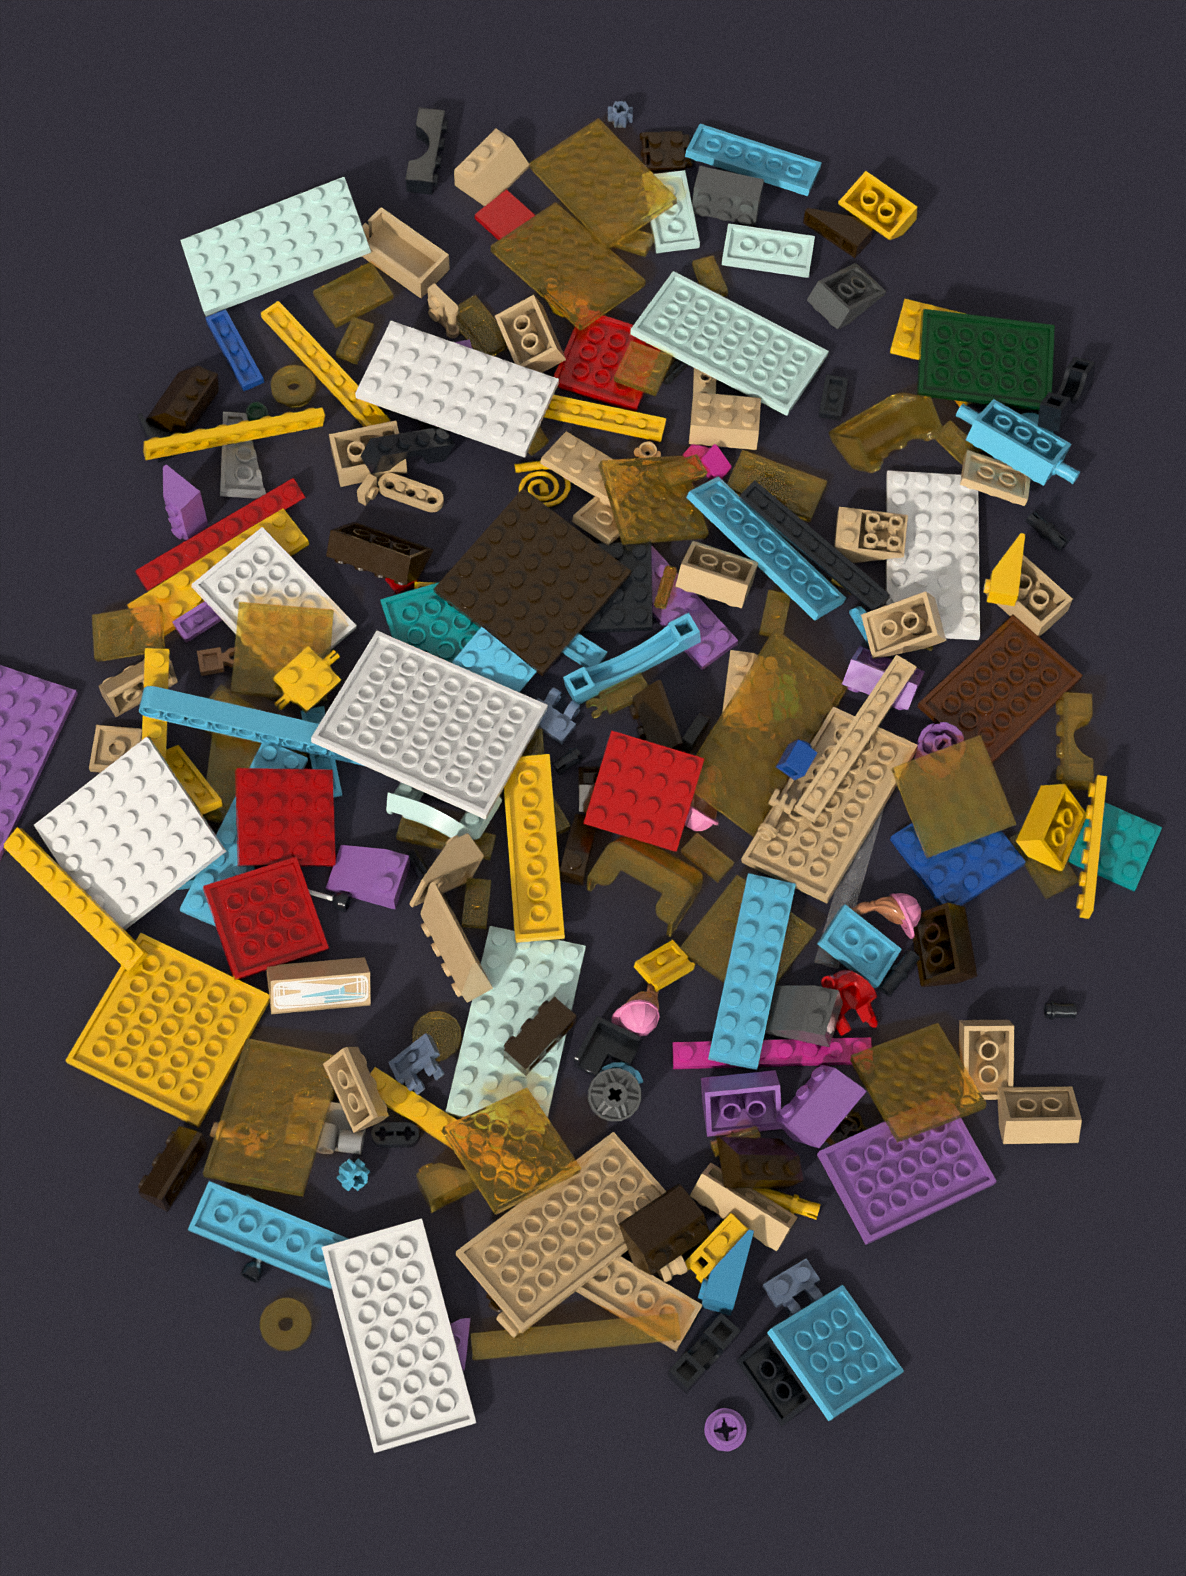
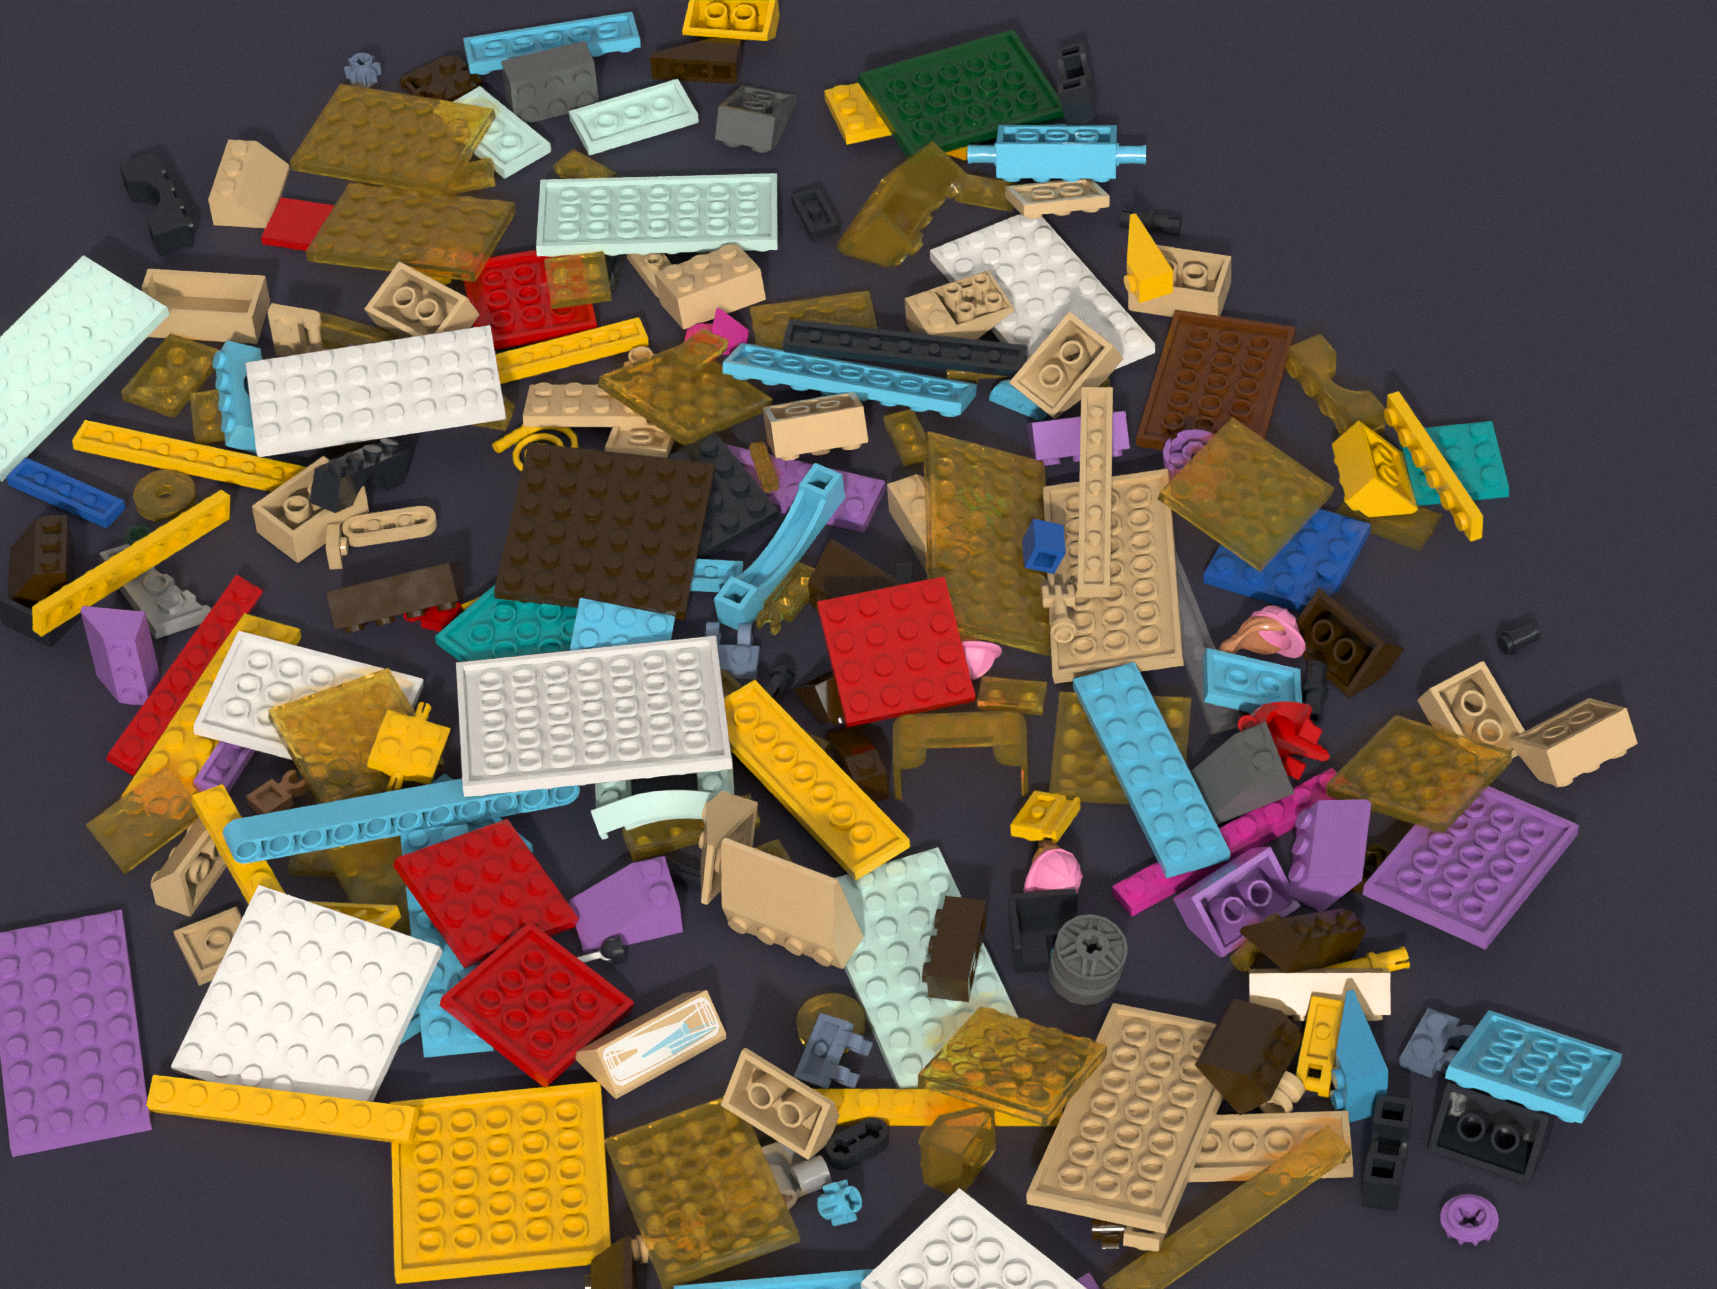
camera: 25 degrees left, 20 degrees down
(390, 309) = (232, 388): none -> medium azure arch

